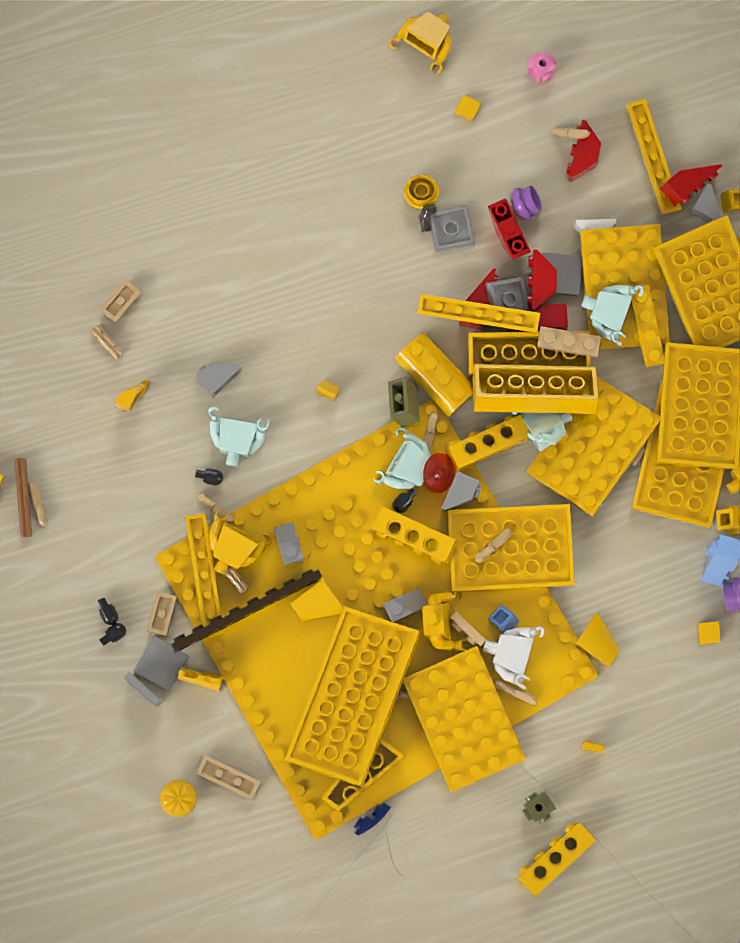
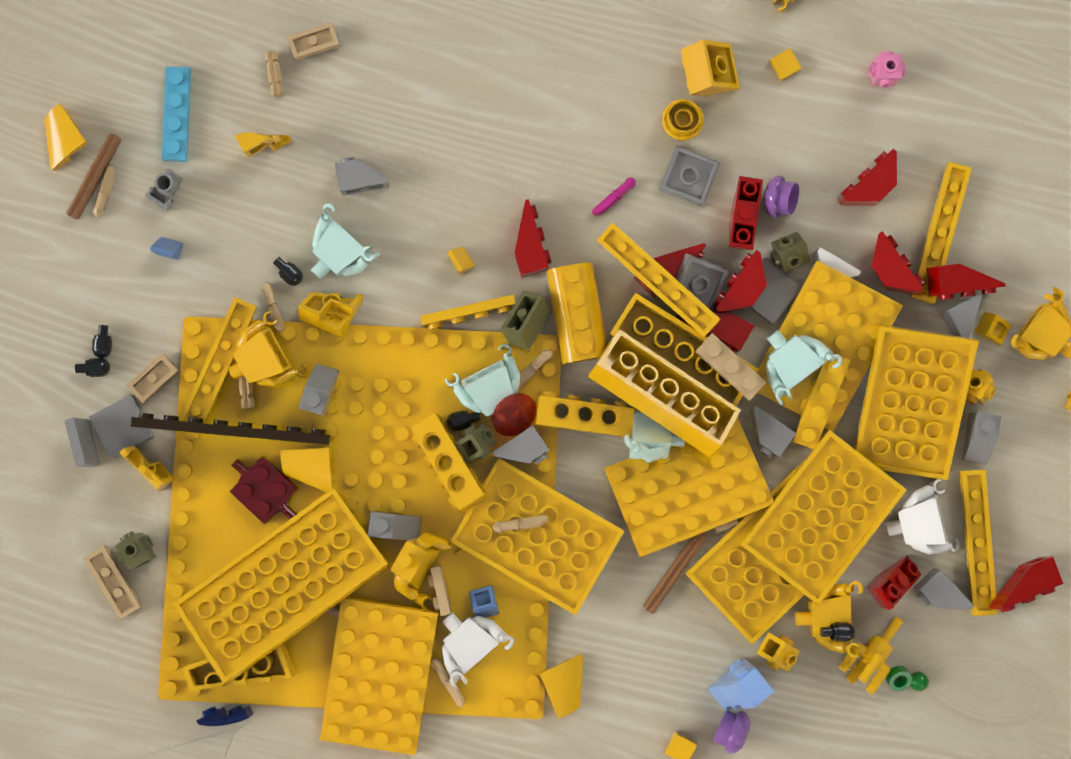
camera: 35 degrees right, 5 degrees up
(54, 415) = (176, 114): none -> medium azure plate
(80, 478) = (163, 193): none -> light grey plate
(111, 515) = (167, 248): none -> medium blue slope
(178, 798) = (49, 571): yellow piece -> none
(237, 746) = (135, 550): none -> olive brick
(258, 485) = (329, 311): none -> yellow slope
(294, 641) = (263, 489): none -> dark red plate
(352, 428) = (458, 314): none -> yellow plate
(373, 352) = (529, 250): none -> red slope
(406, 282) = (612, 198): none -> dark pink piece
(416, 144) = (710, 68): none -> yellow slope
(424, 217) = (669, 146): clear smoke arm -> none
(425, 509) = (475, 443): none -> olive brick
(557, 237) = (790, 252): none -> olive brick
(570, 133) = (871, 154): tan piece -> none
(623, 513) = (674, 573): none -> medium nougat axle
(626, 372) = (770, 433): none -> light grey slope
(637, 202) = (894, 269): none -> red slope

